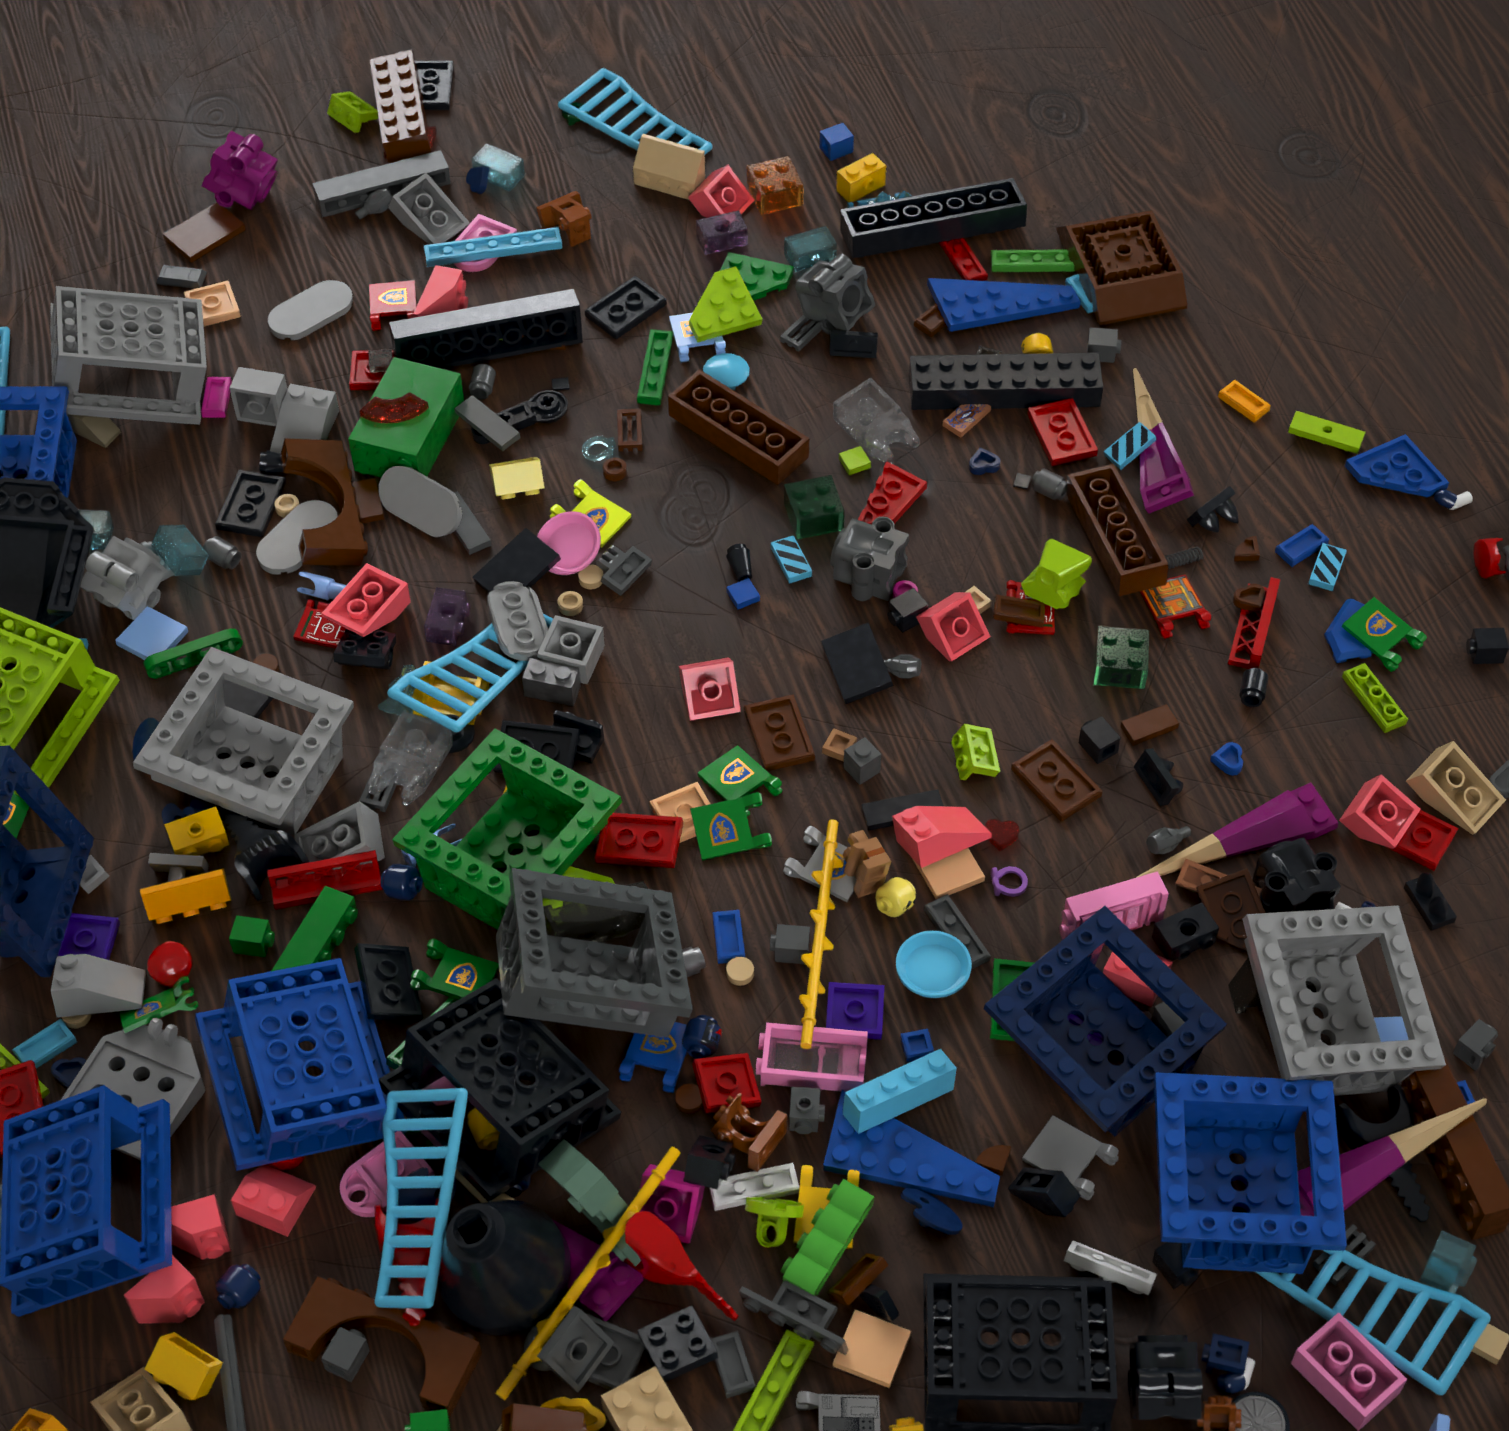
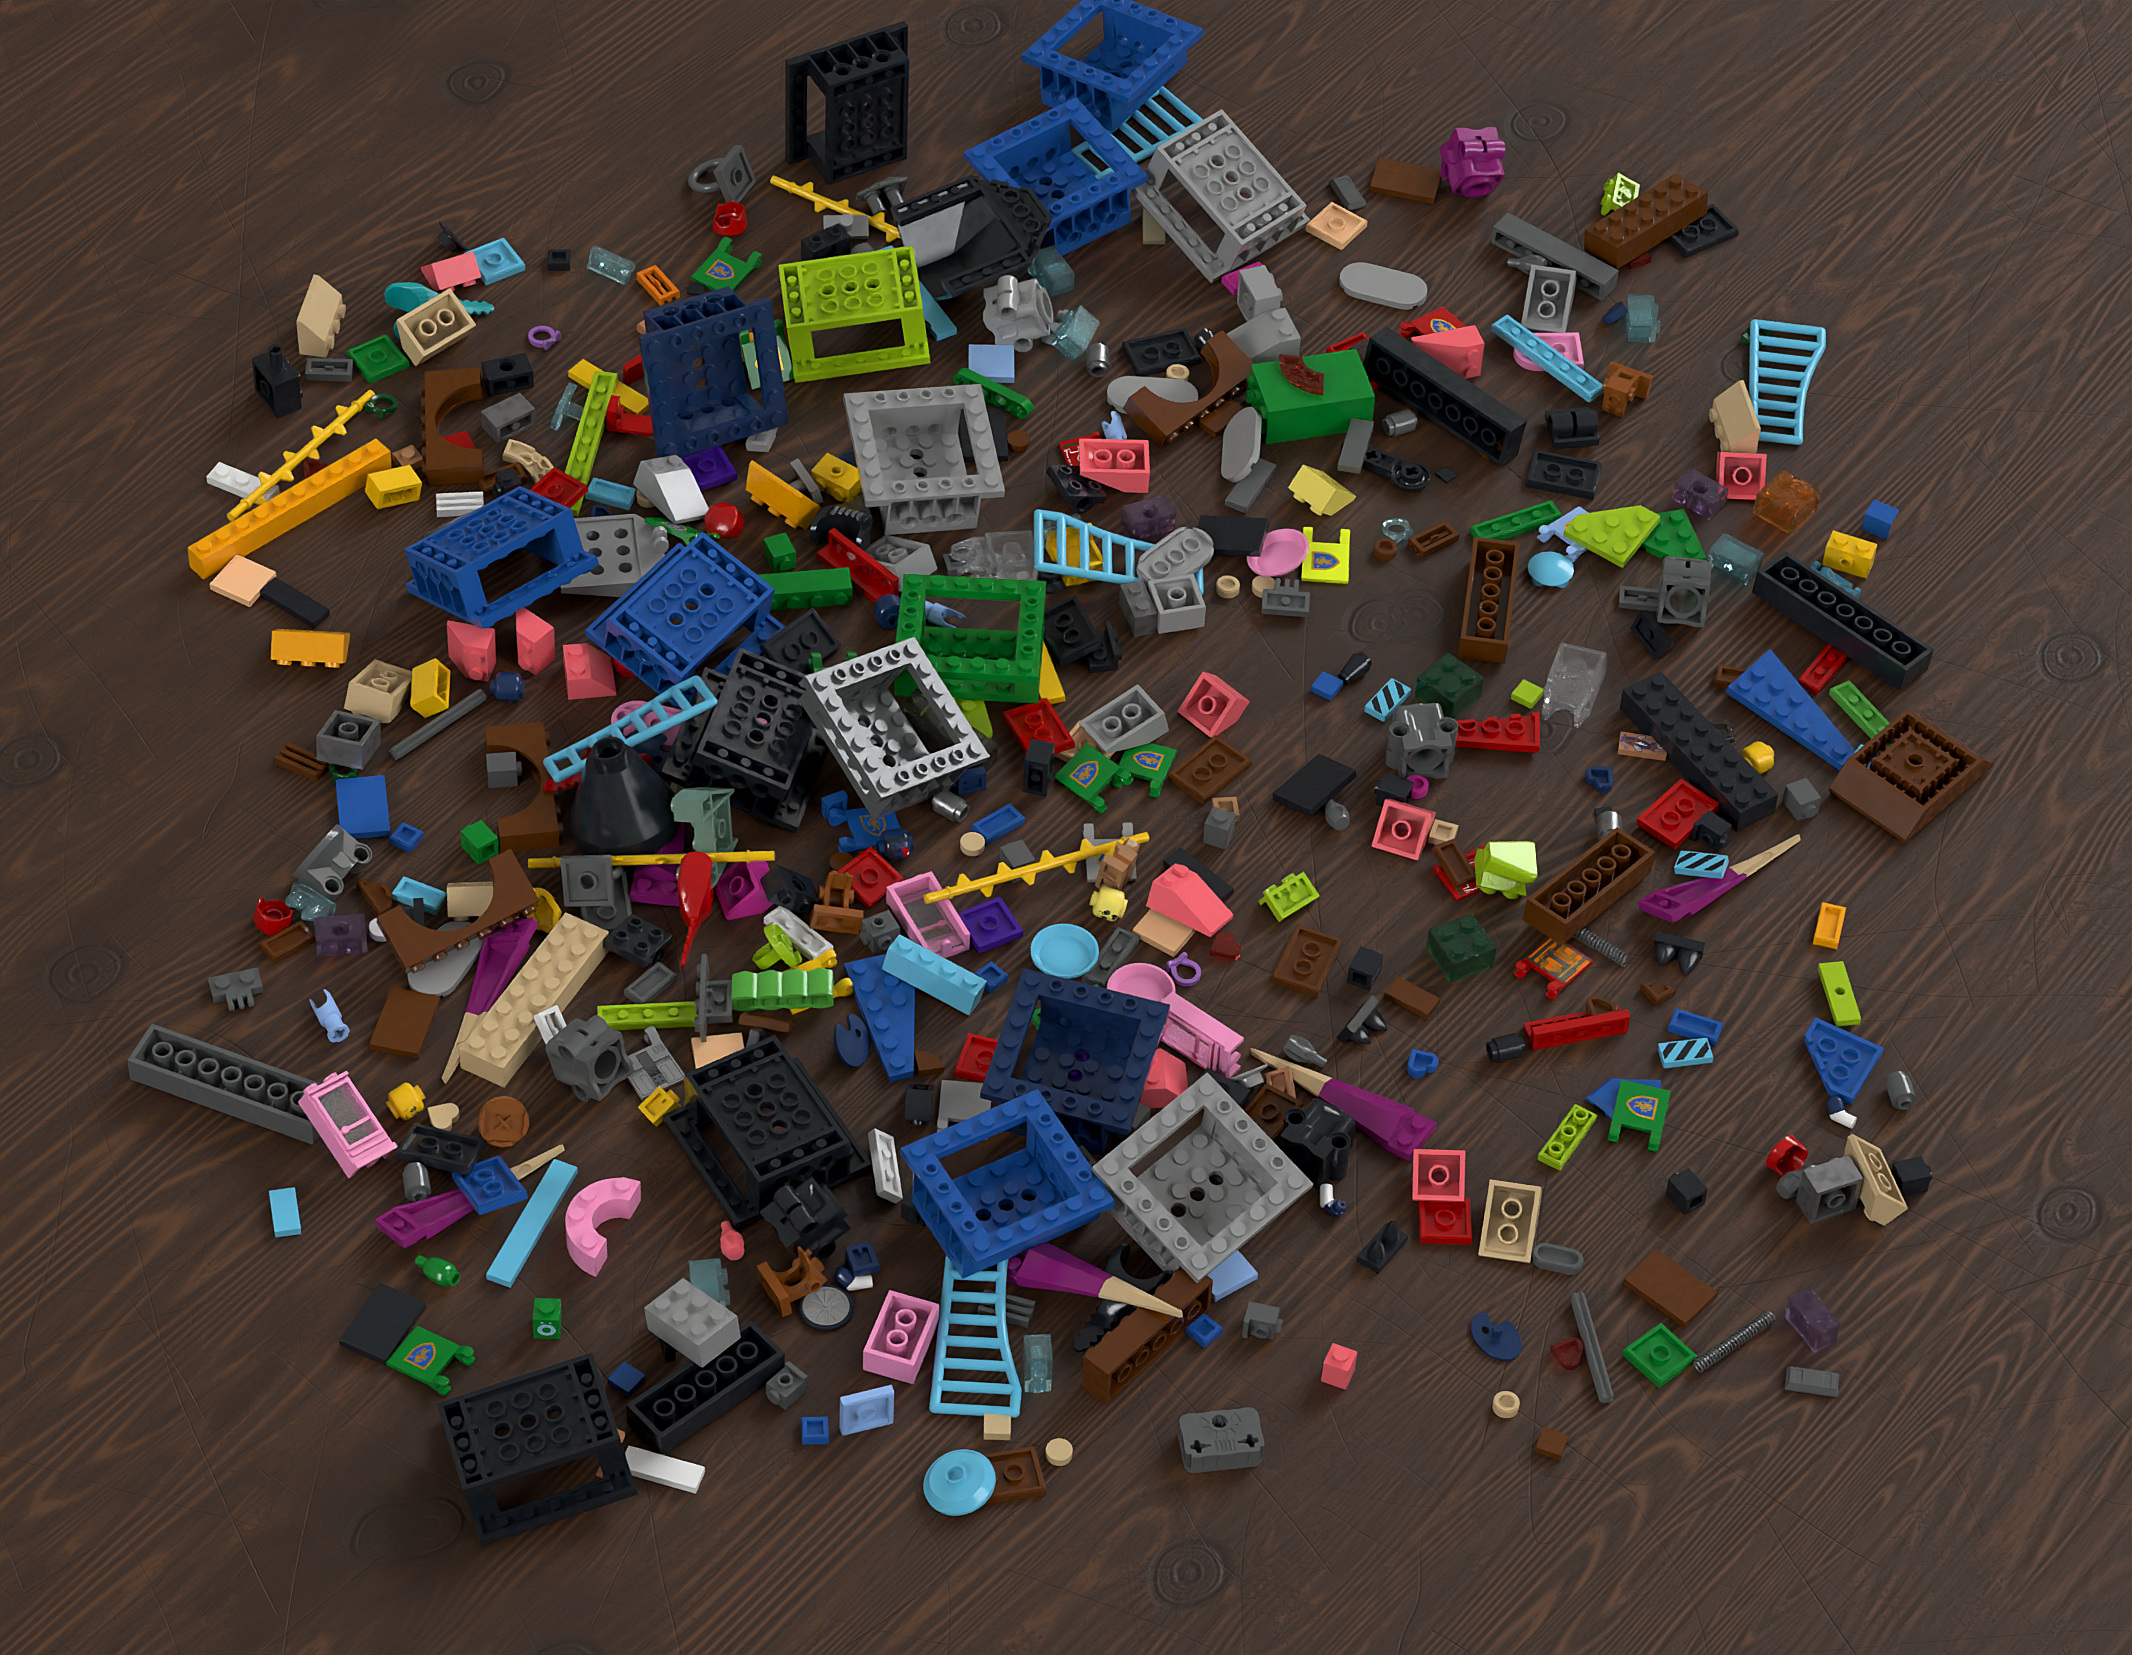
camera: 55 degrees right, 5 degrees down
(582, 271) = (1572, 427): none -> black plate
(613, 1063) = (835, 800): none -> blue tile
(687, 764) = (1126, 722): none -> light grey slope
(697, 862) = (1038, 767): none -> black brick
(1019, 1105) = (975, 1058): none -> red tile
(1021, 927) = (1142, 981): none -> bright pink piece
(1100, 418) = (1712, 831): none -> black brick
(1180, 894) = (1250, 1077): none -> light grey piece
(1455, 448) = (1900, 1090): none -> dark grey brick

